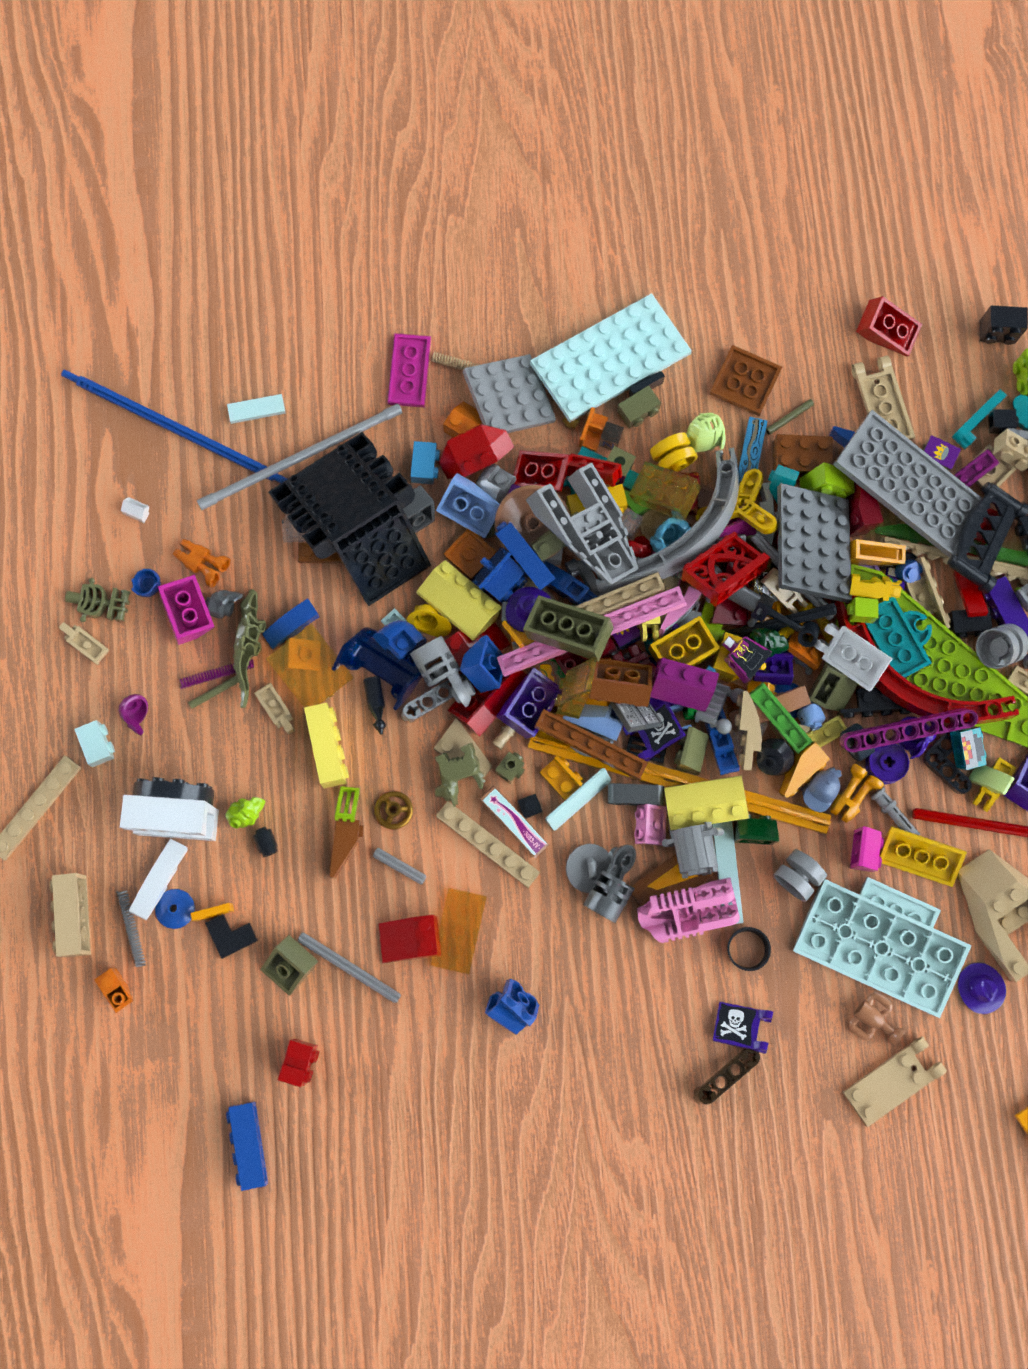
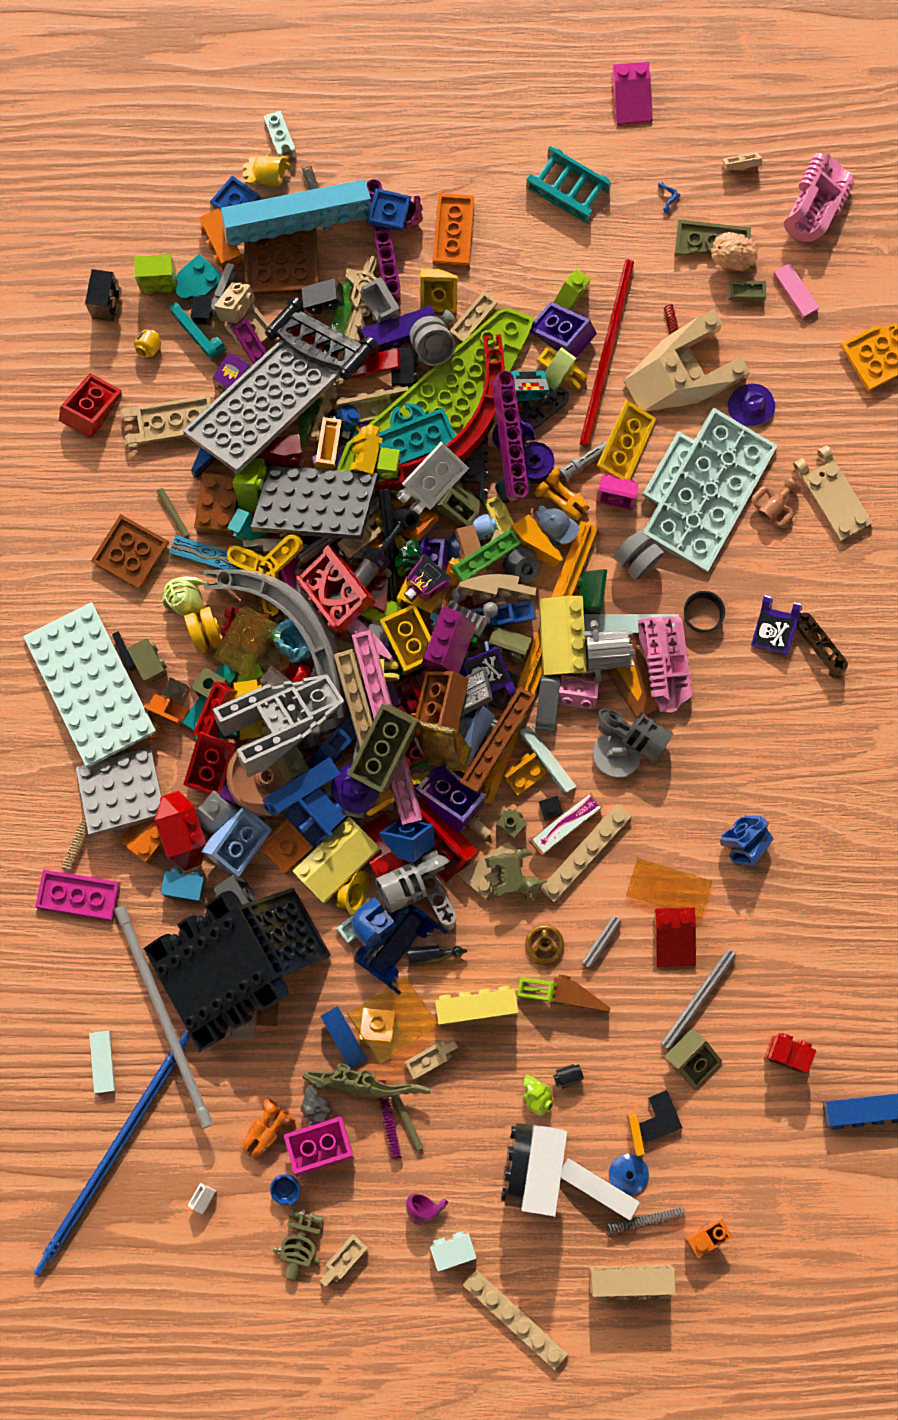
camera: 80 degrees left, 0 degrees up
(960, 373) = (147, 343): none -> yellow head

